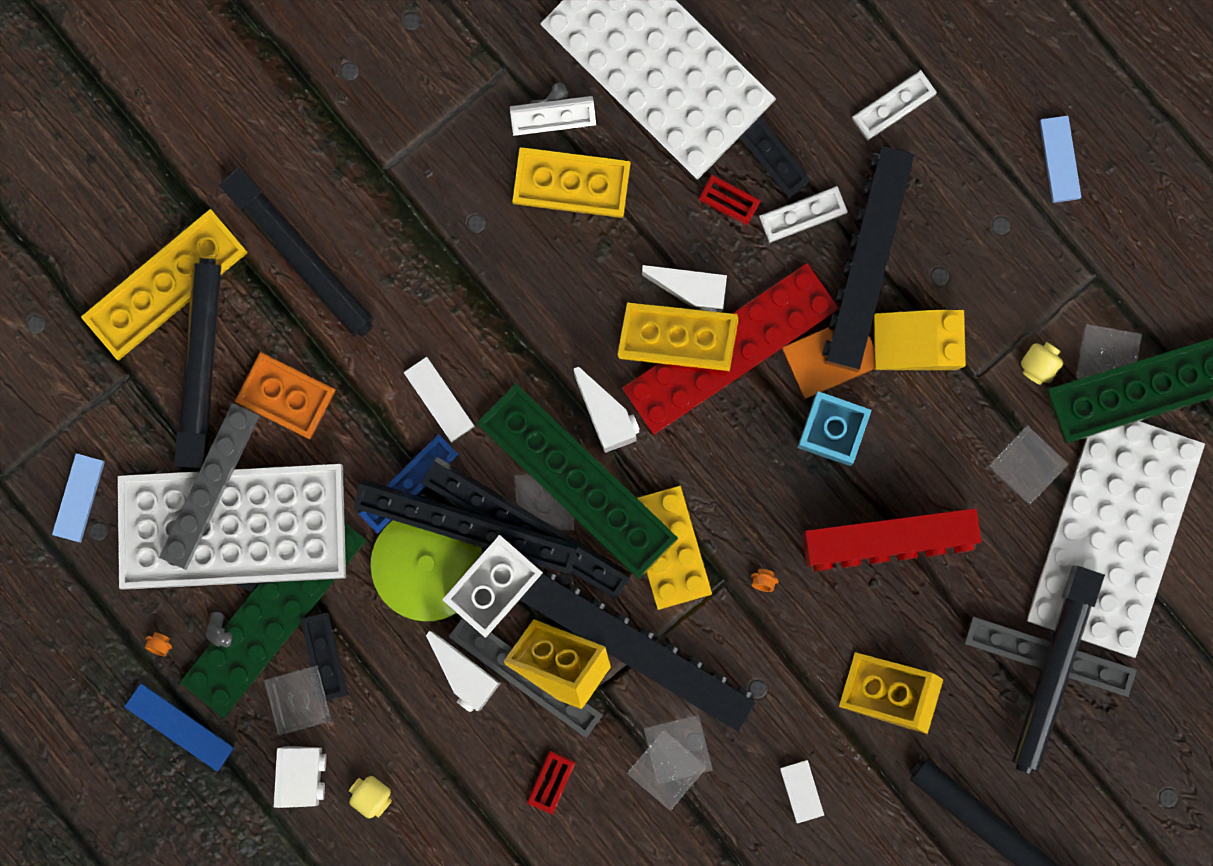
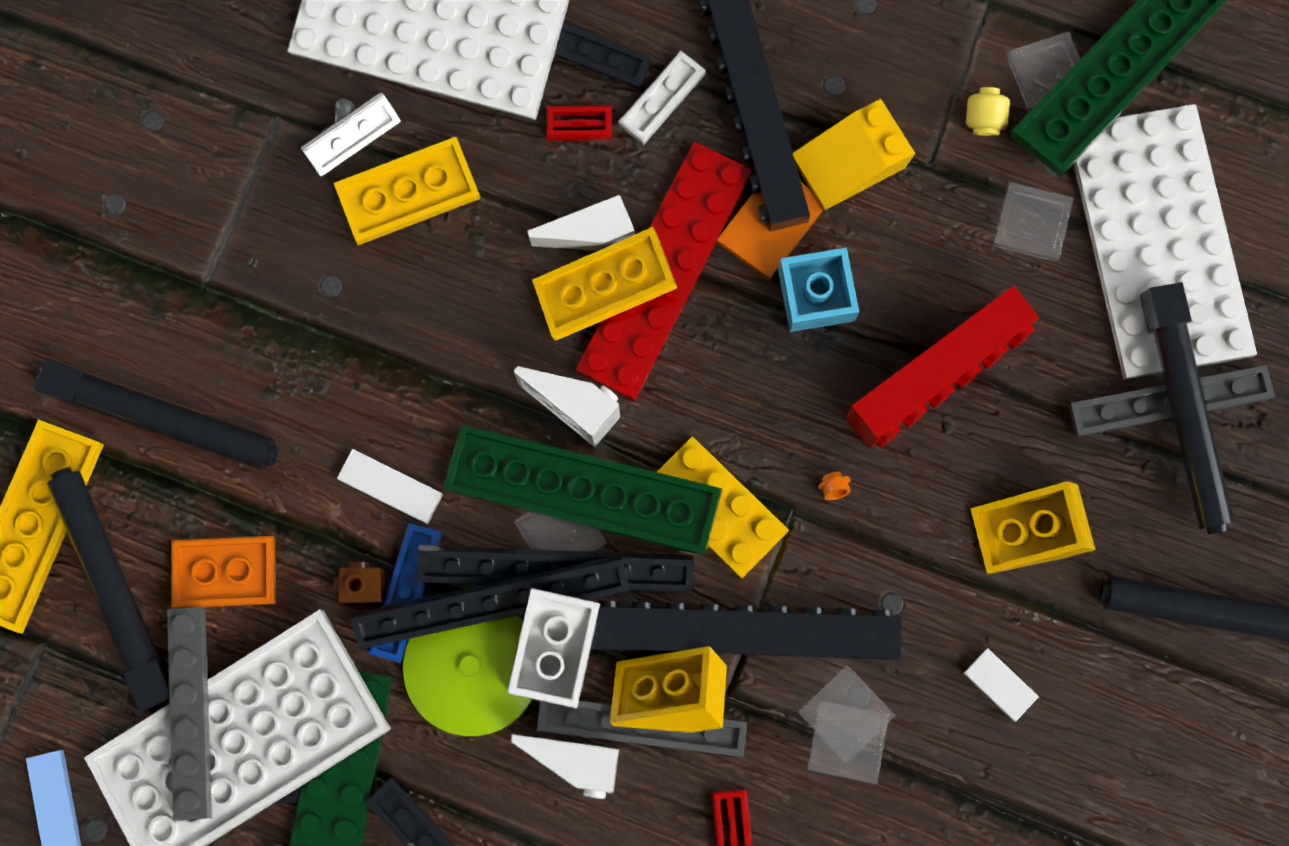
camera: 30 degrees left, 5 degrees down
(379, 460) = (360, 585): none -> reddish brown brick

